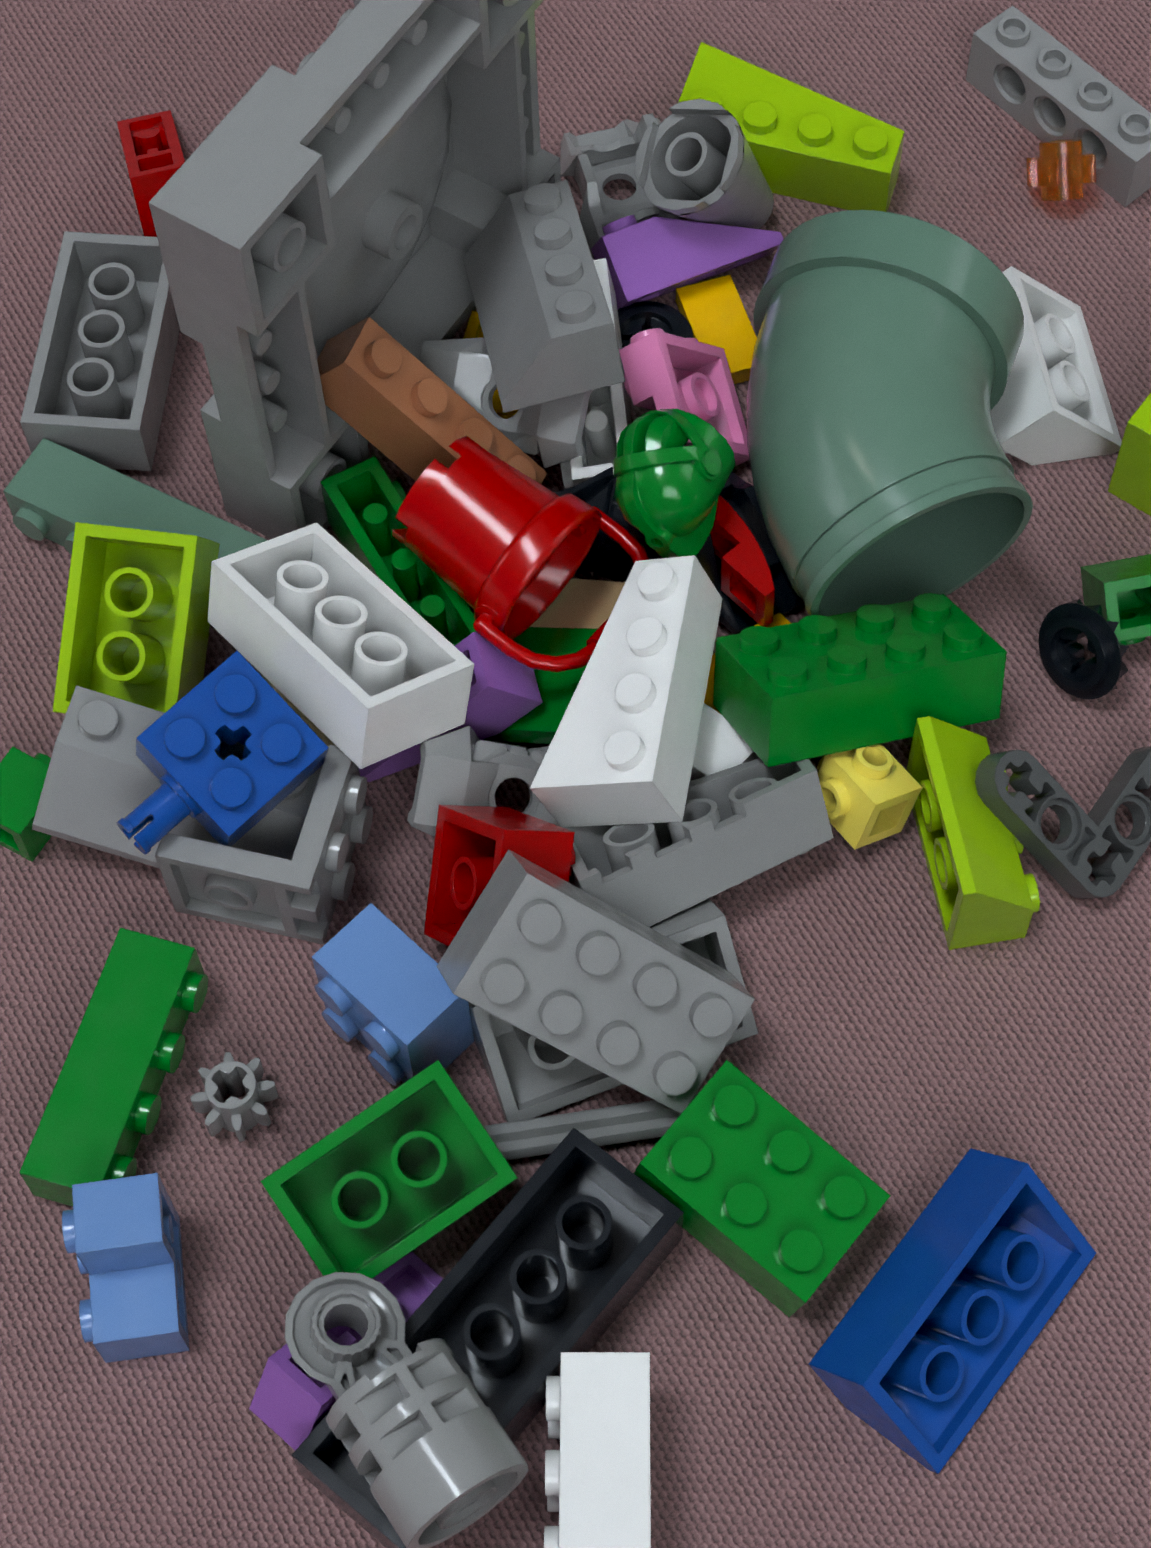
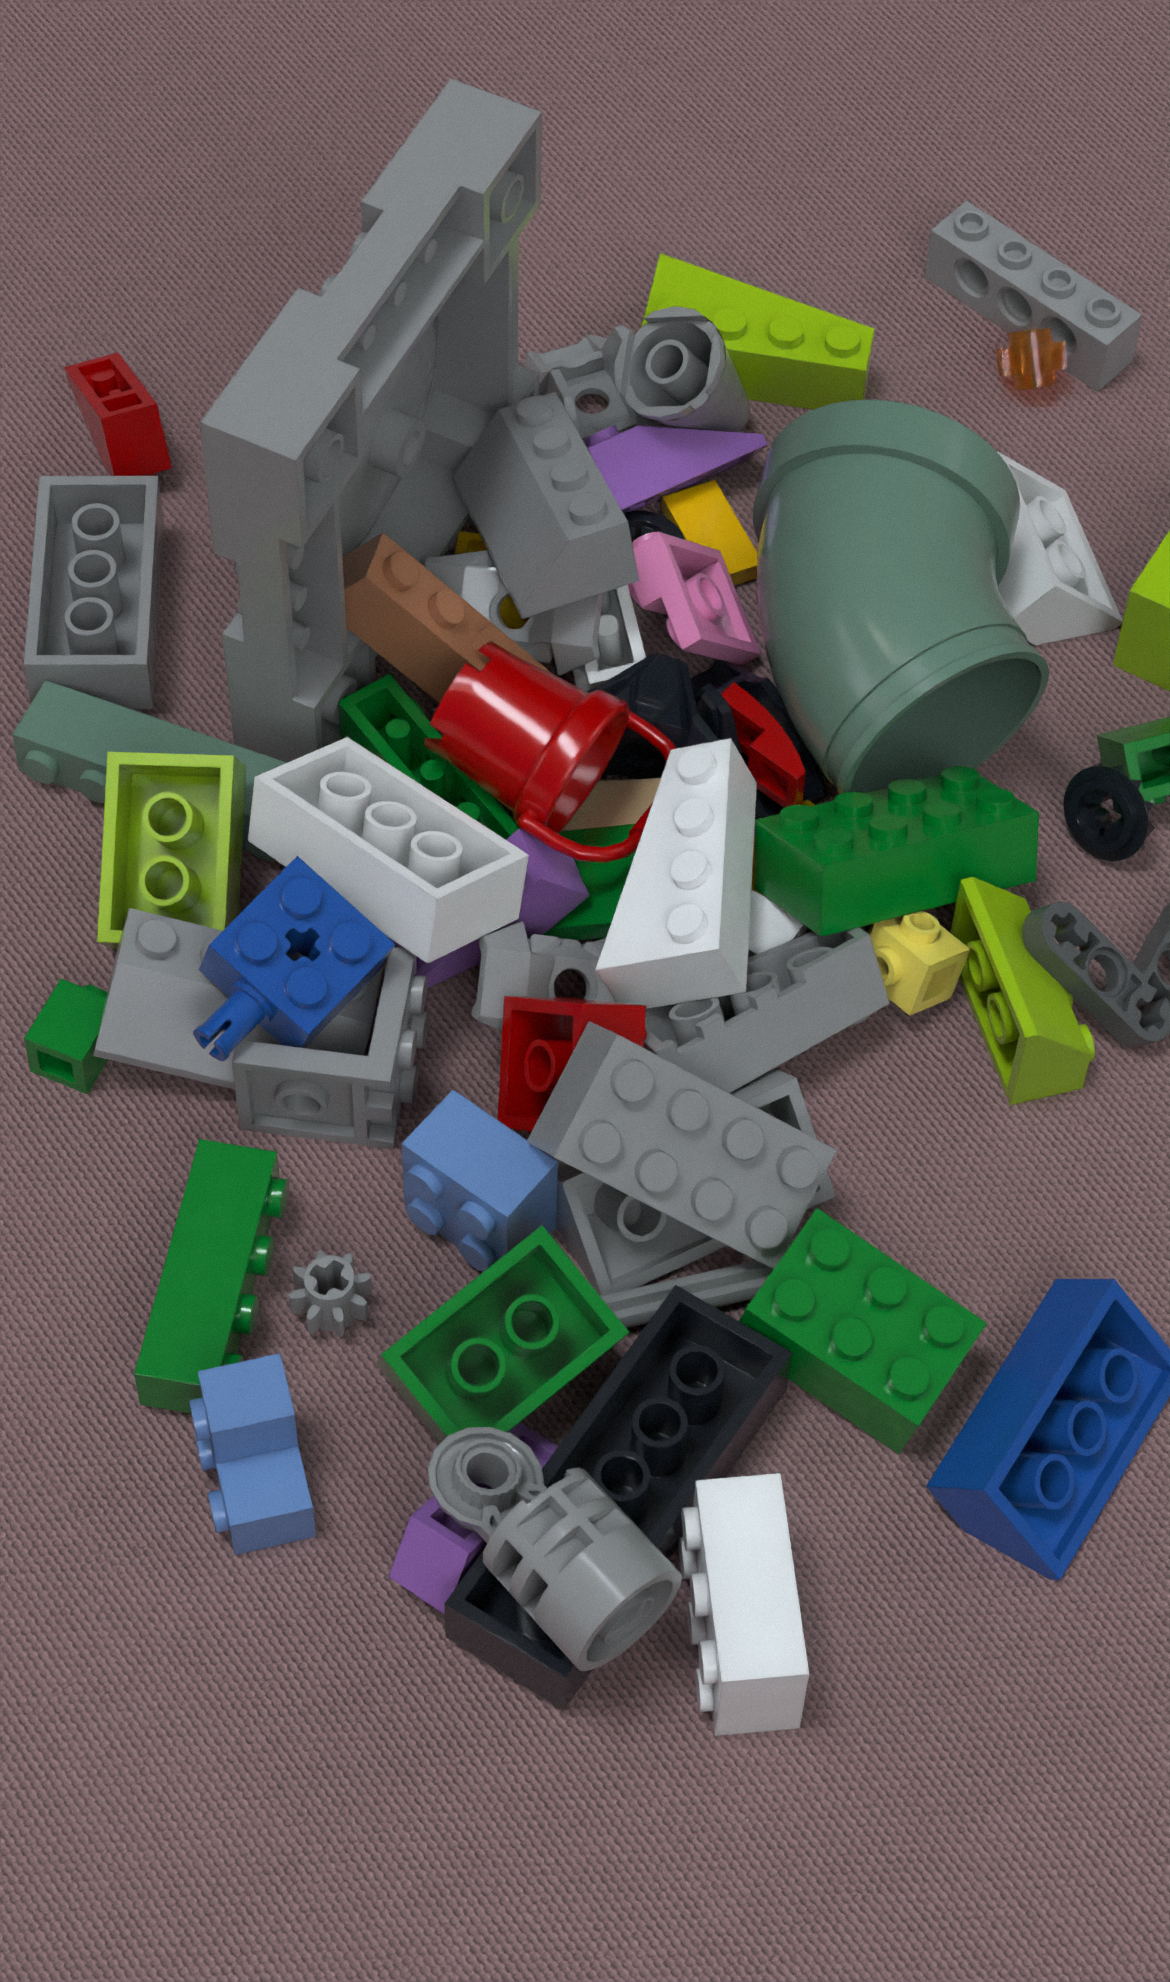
camera: 10 degrees left, 5 degrees down
(668, 486) = (693, 675): green helmet -> none

